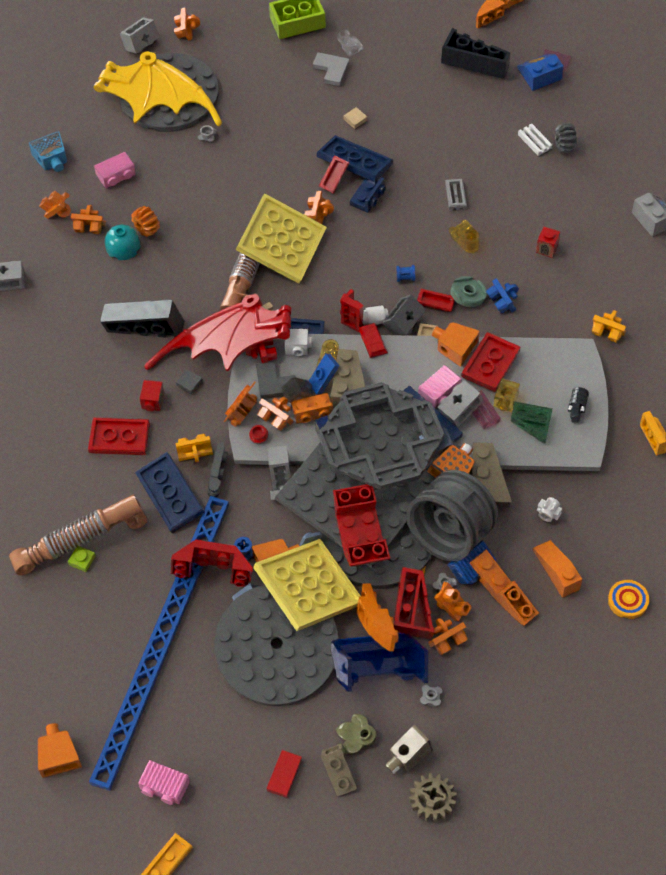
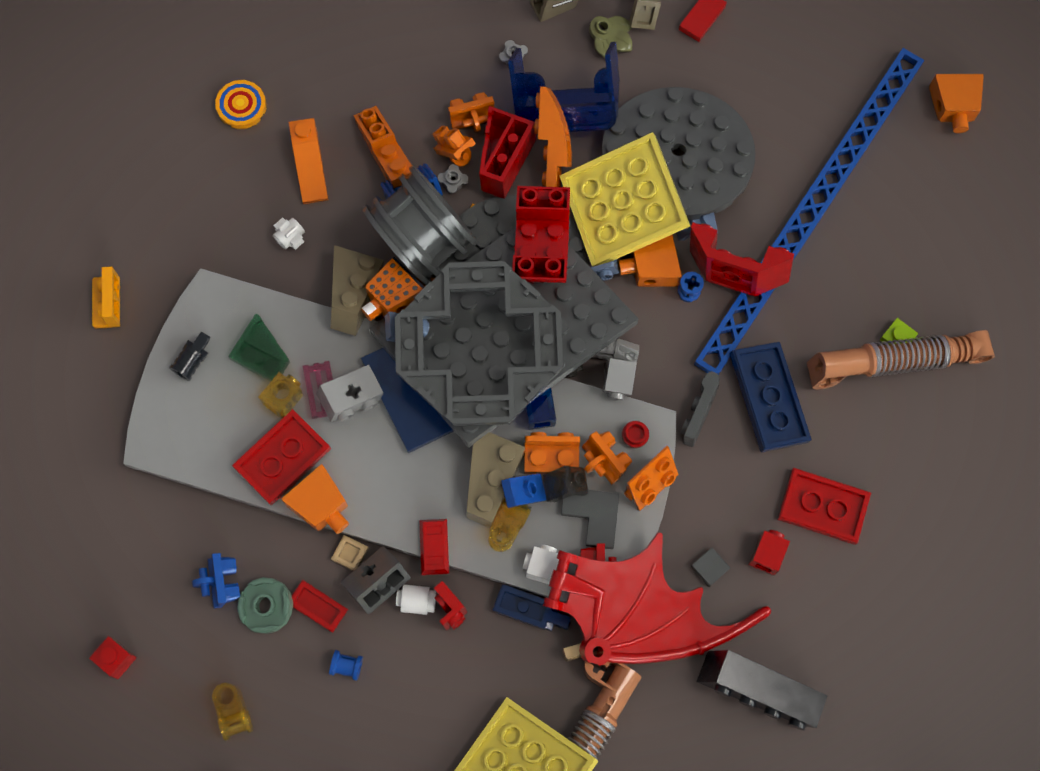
camera: 170 degrees left, 15 degrees up
(163, 782) = (840, 35): bright pink brick -> none
(194, 448) = (737, 453): light orange hips -> none
(439, 386) = (367, 433): bright pink brick -> none
(616, 329) = (87, 488): light orange hips -> none

